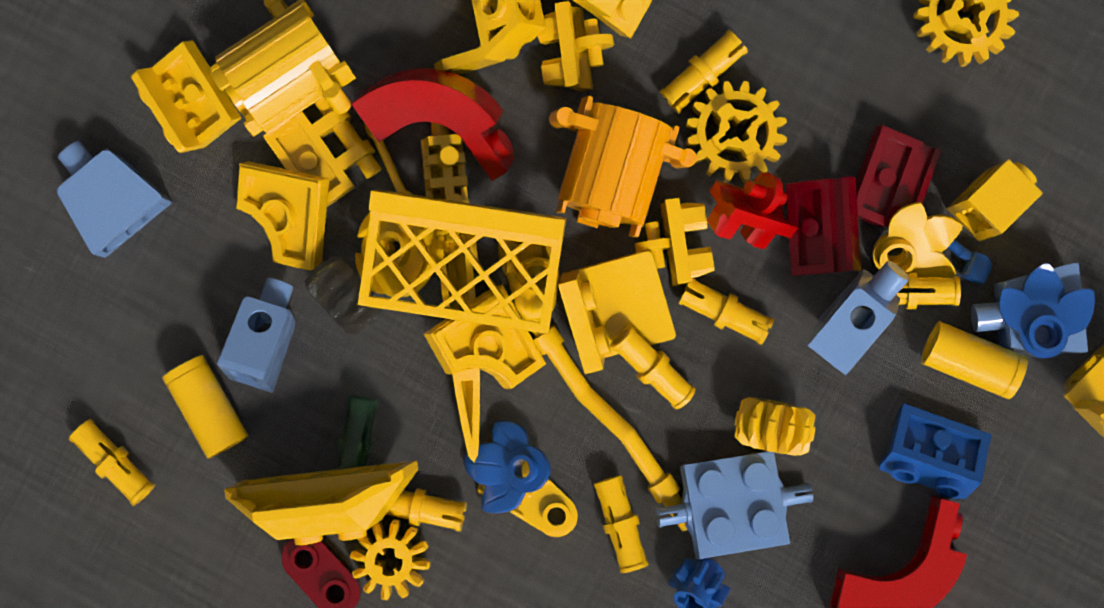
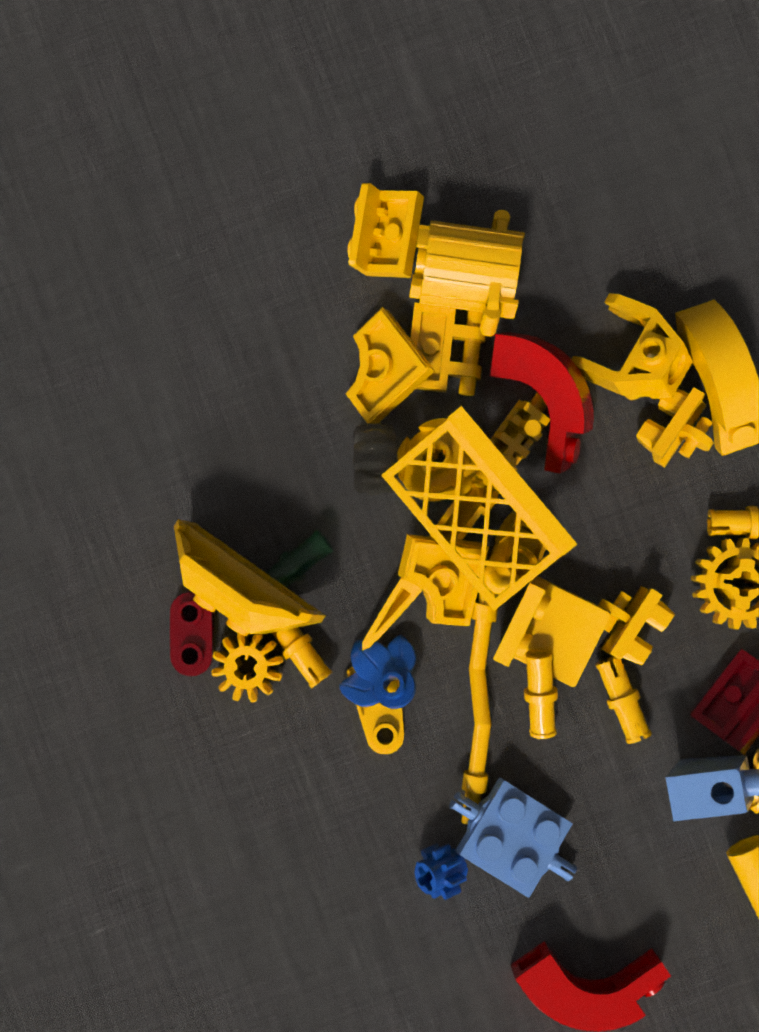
camera: 35 degrees right, 0 degrees up
(107, 197) = (272, 252): medium blue torso -> none
(111, 462) = (118, 432): yellow pin -> none
(205, 406) = (214, 451): yellow pin -> none
(254, 356) = (279, 448): medium blue torso -> none
(389, 165) = (483, 390): yellow hinge -> none
(615, 163) = (639, 532): light orange container -> none
(621, 524) = (424, 780): yellow pin -> none
(755, 206) = (704, 649): red hips -> none
(774, 426) = (589, 809): yellow gear -> none
(936, 453) = (682, 924): blue bracket -> none

